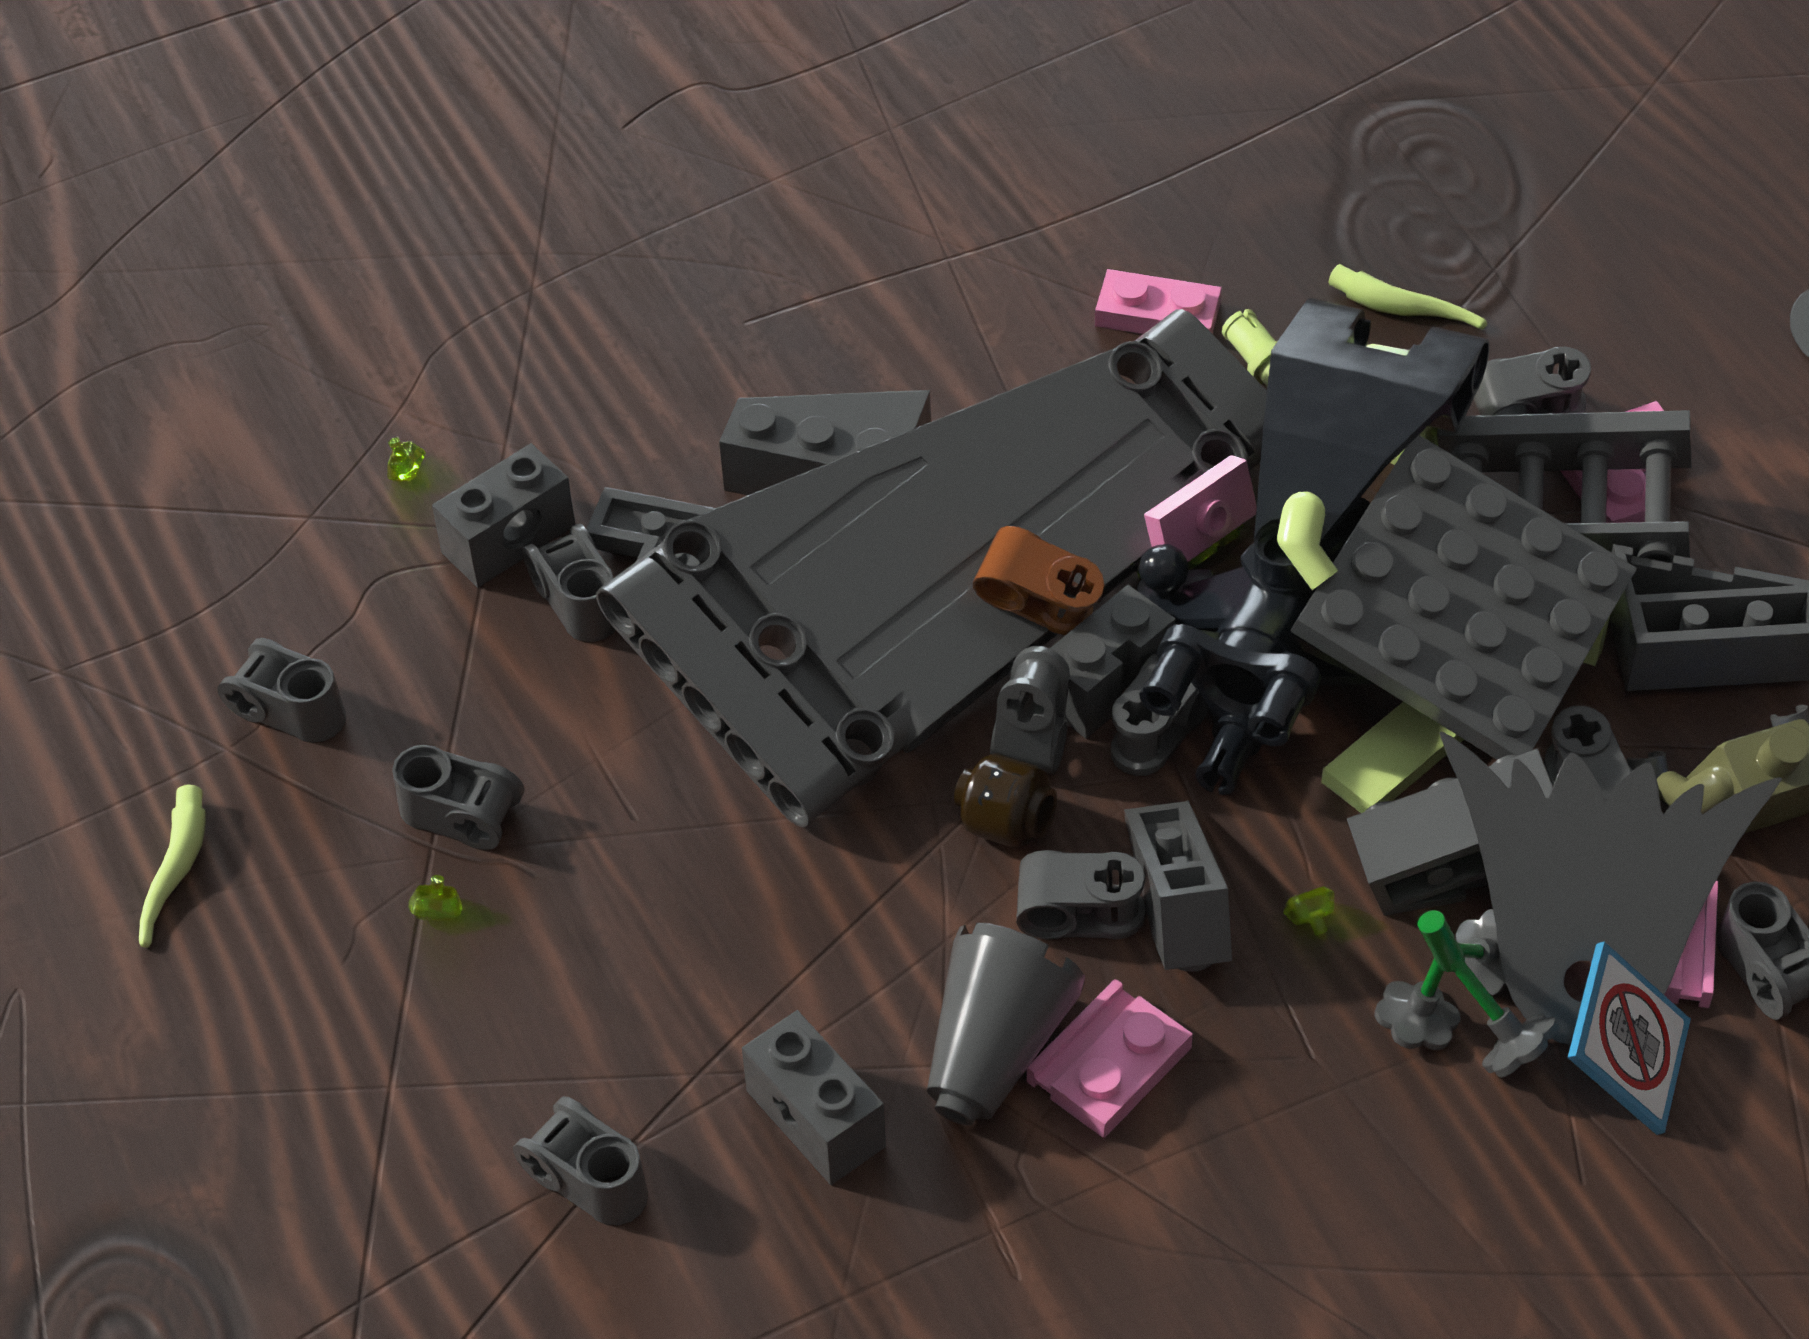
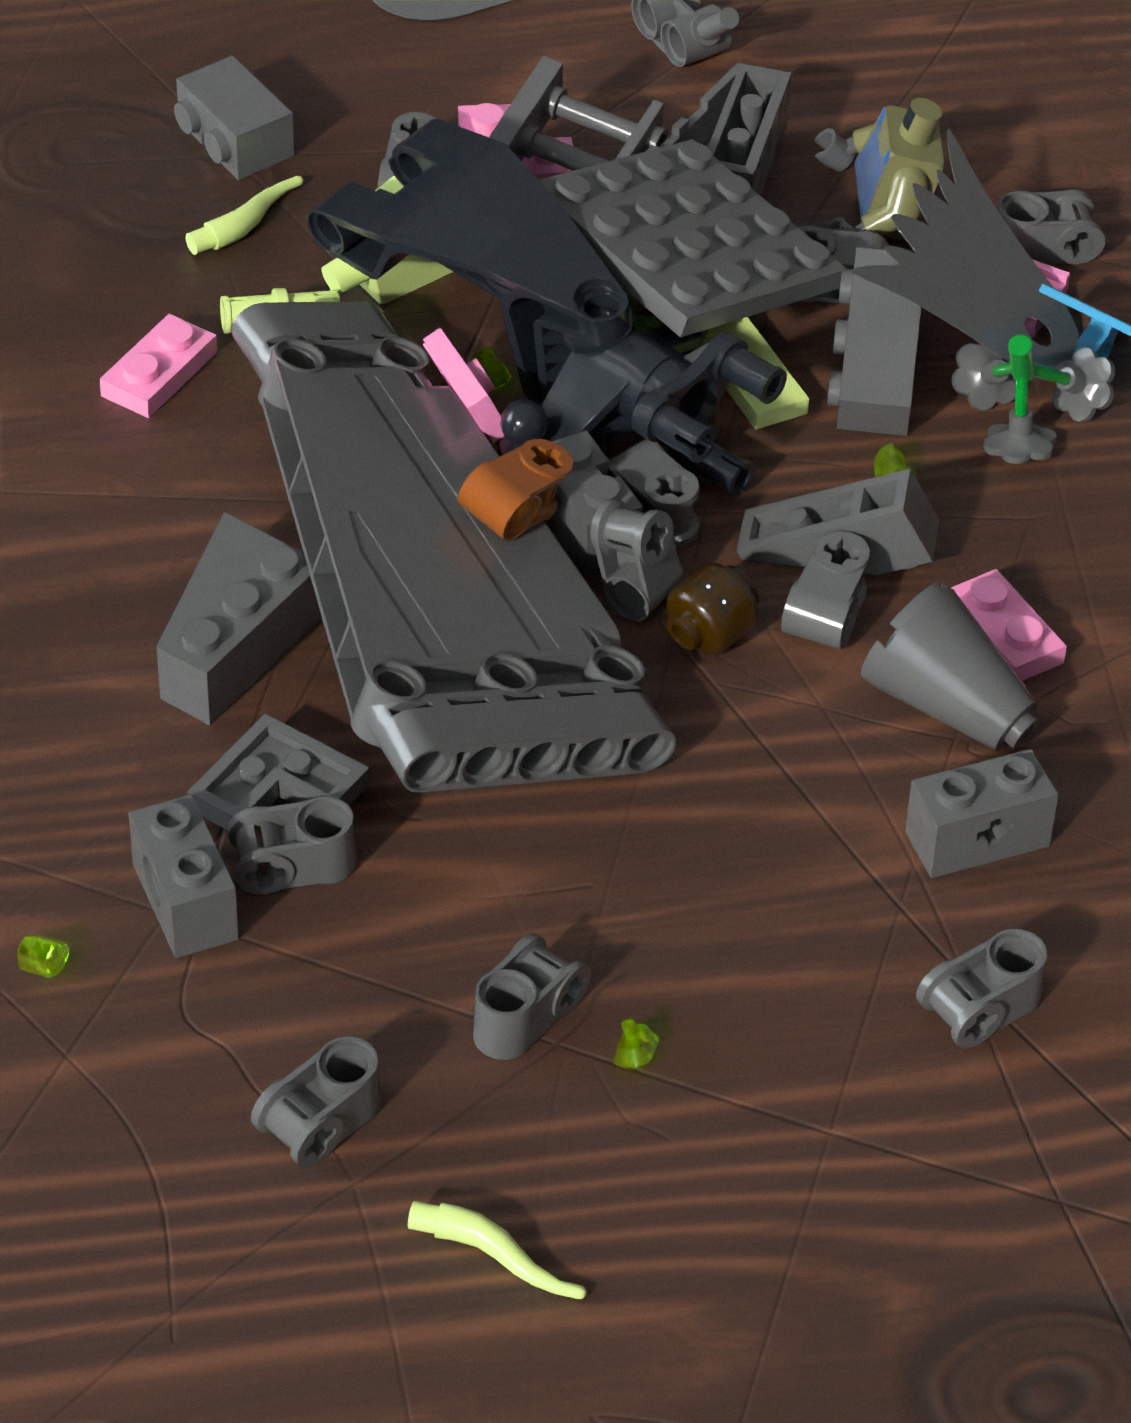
camera: 75 degrees left, 5 degrees down
(1300, 537) = (616, 276): yellowish green arm -> none
(1522, 241) = (234, 117): none -> dark grey brick

